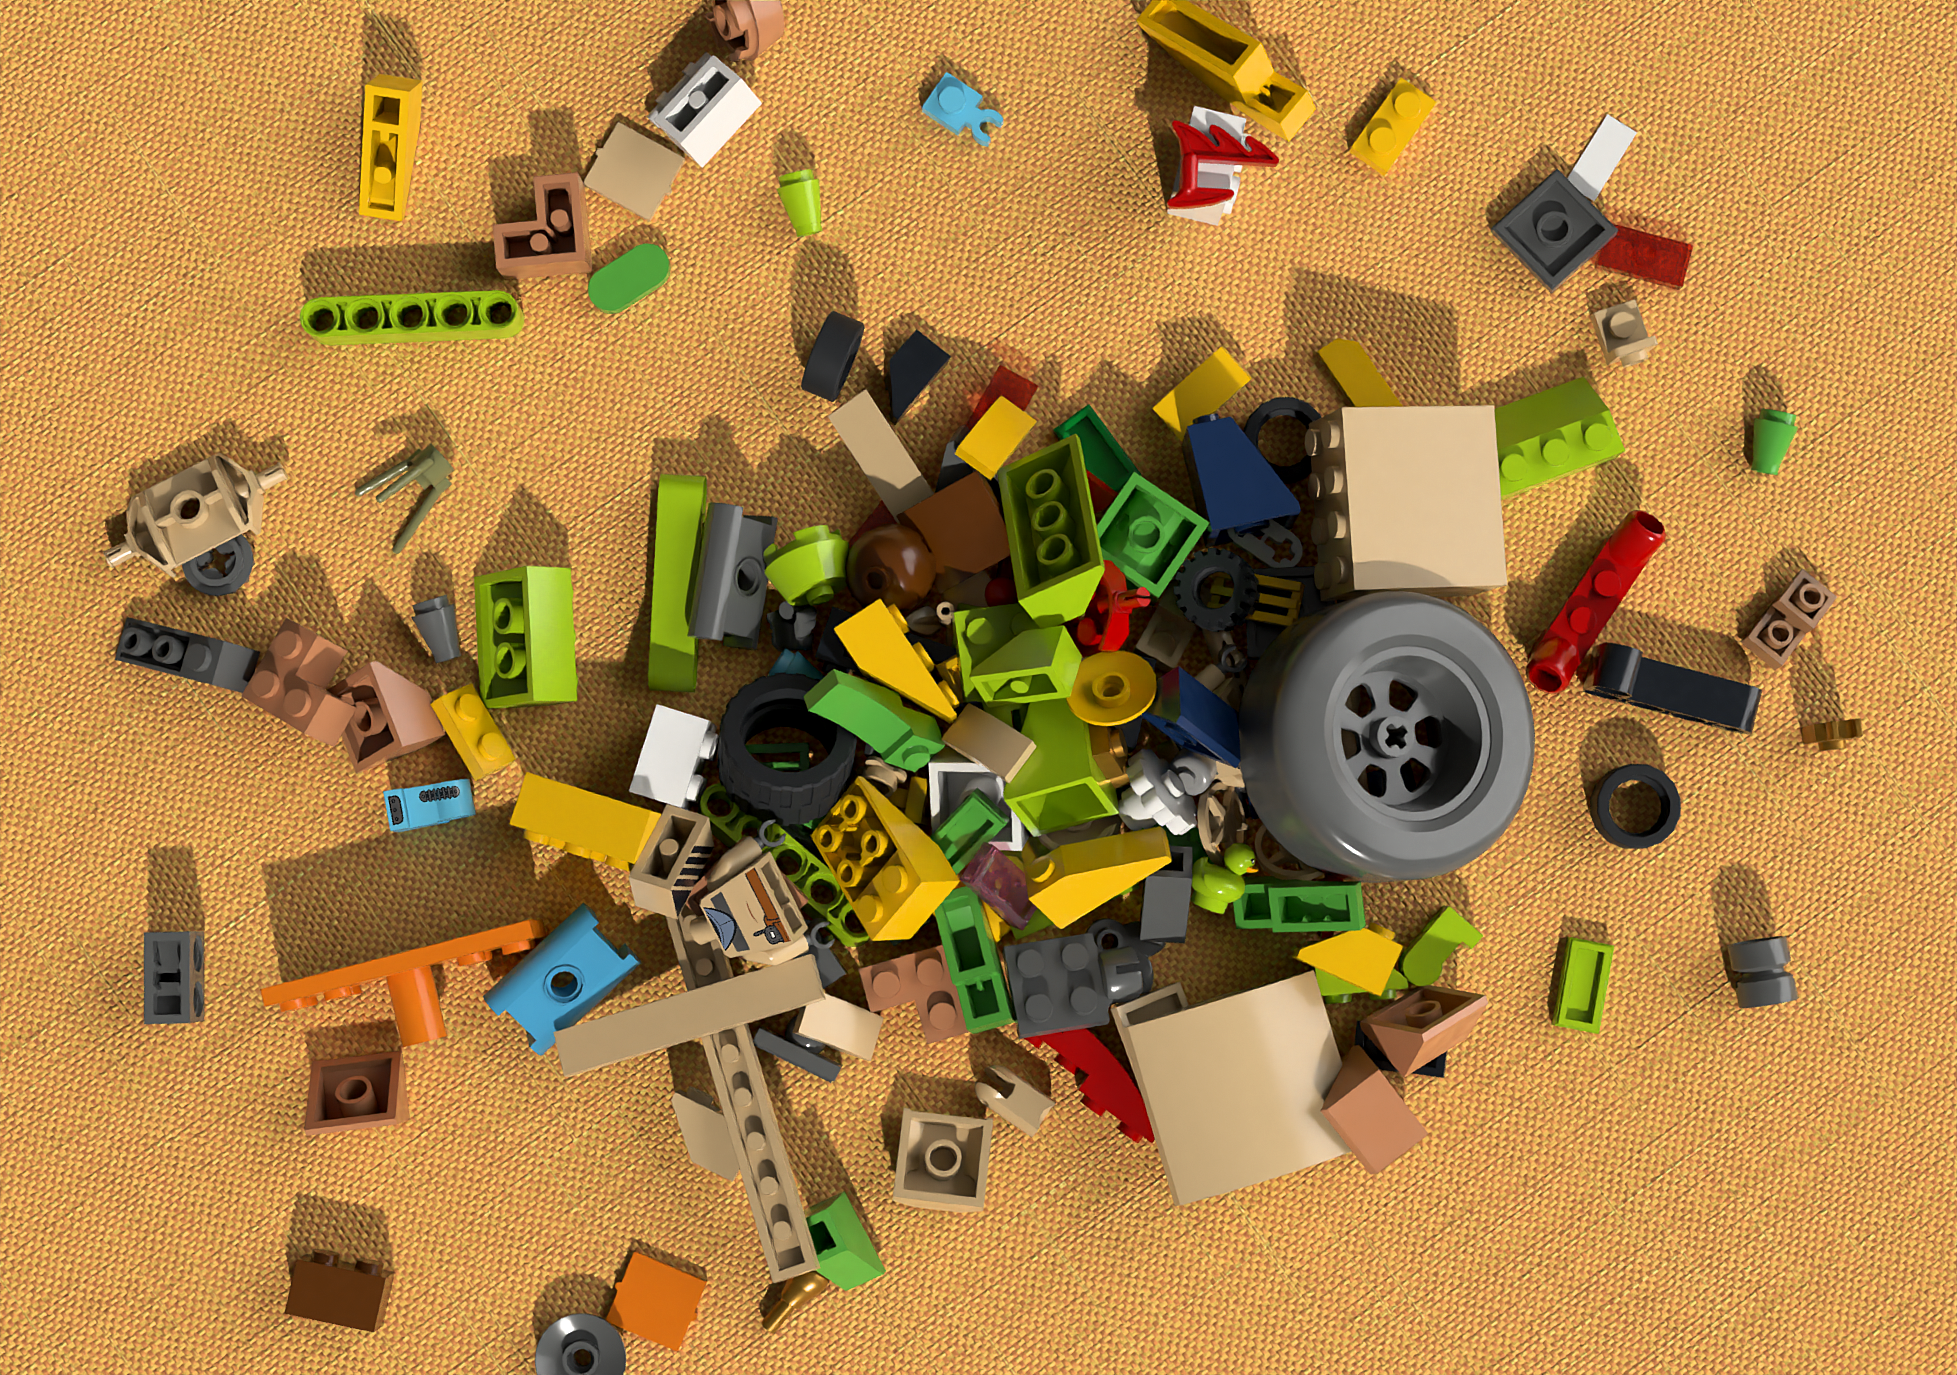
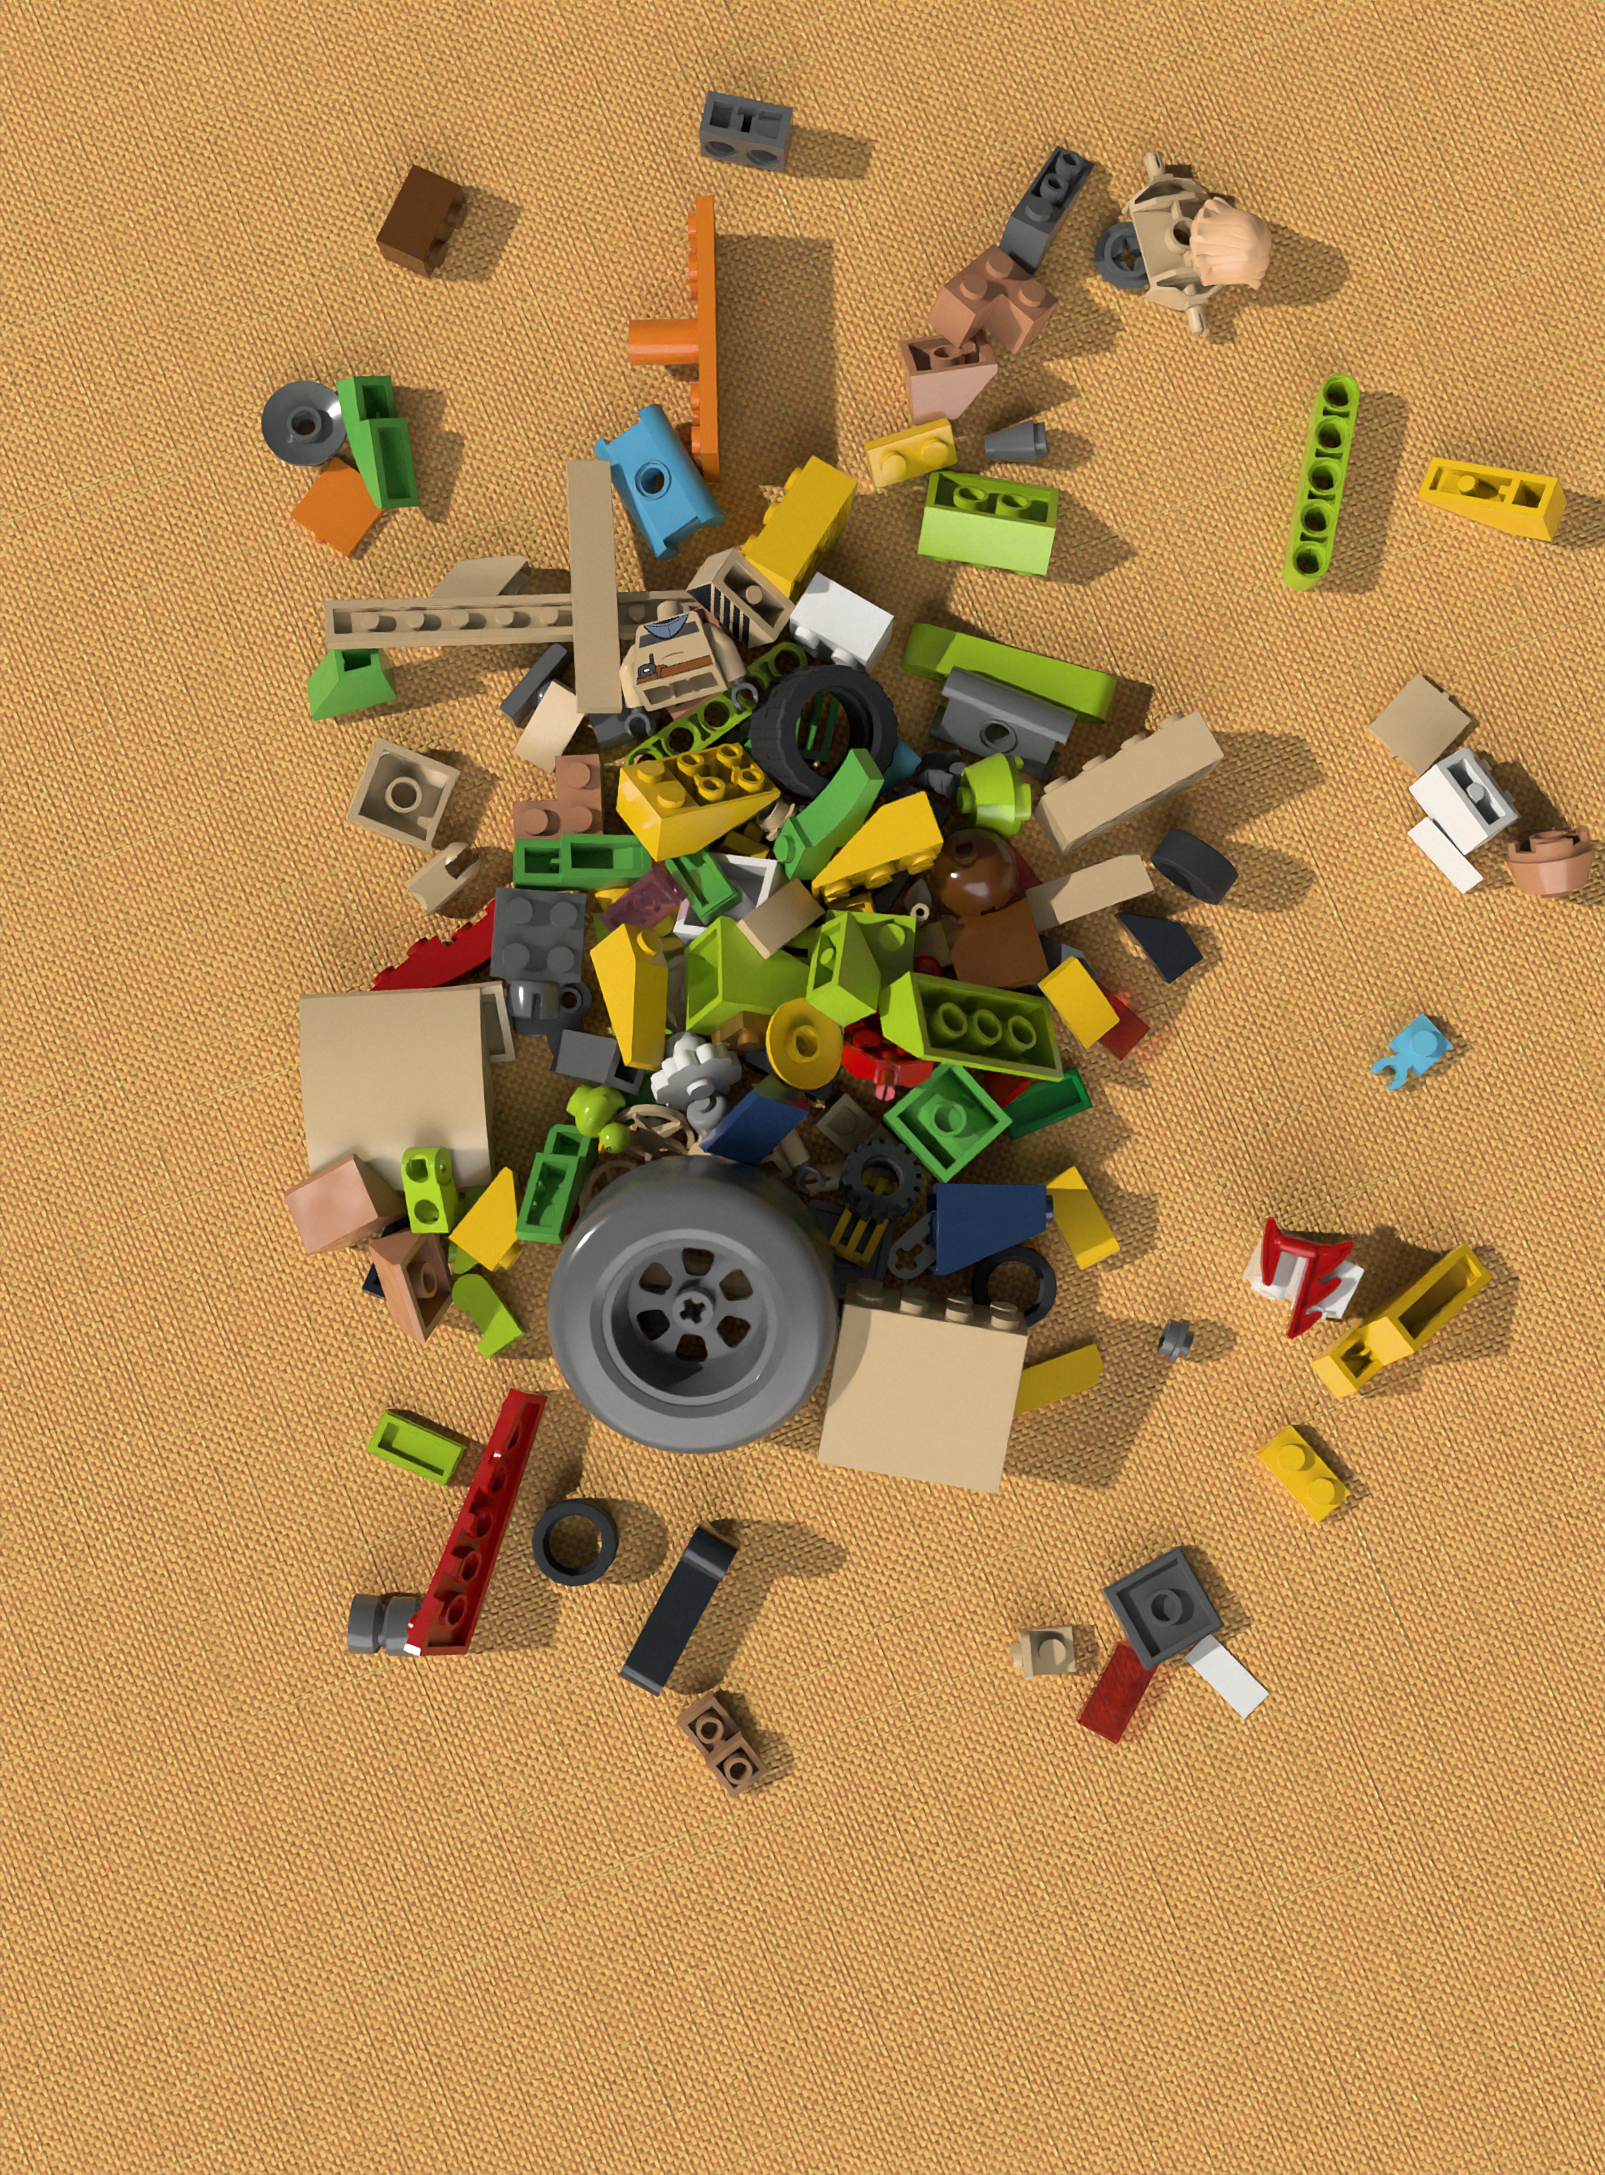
camera: 105 degrees right, 0 degrees up
(191, 459) = (1229, 245): none -> light nougat hair
(357, 1093) = (597, 275): nougat slope -> none
(428, 469) = (1172, 464): olive plant -> none
(428, 805) = (852, 396): medium azure leg -> none
(555, 241) = (1368, 632): nougat brick -> none
(582, 1277) = (379, 440): none -> bright green slope
(629, 278) = (1314, 696): bright green tile -> none
(760, 118) = (1445, 855): none -> white sticker
(762, 434) = (1128, 782): none -> tan brick
(793, 1296) = (311, 629): pearl gold piece -> none
(801, 201) = (1354, 875): lime cone -> none
(1296, 274) = (1175, 1339): none -> dark grey plate
(1337, 1026) = (431, 1190): none -> lime leg
(1553, 436) = (957, 1548): lime slope -> none
(1593, 601) = (783, 1550): red plate -> none
(1689, 905) = (466, 1566): none -> red wing
(1771, 439) = (903, 1772): bright green cone -> none
(1832, 734) = (597, 1755): pearl gold plate -> none

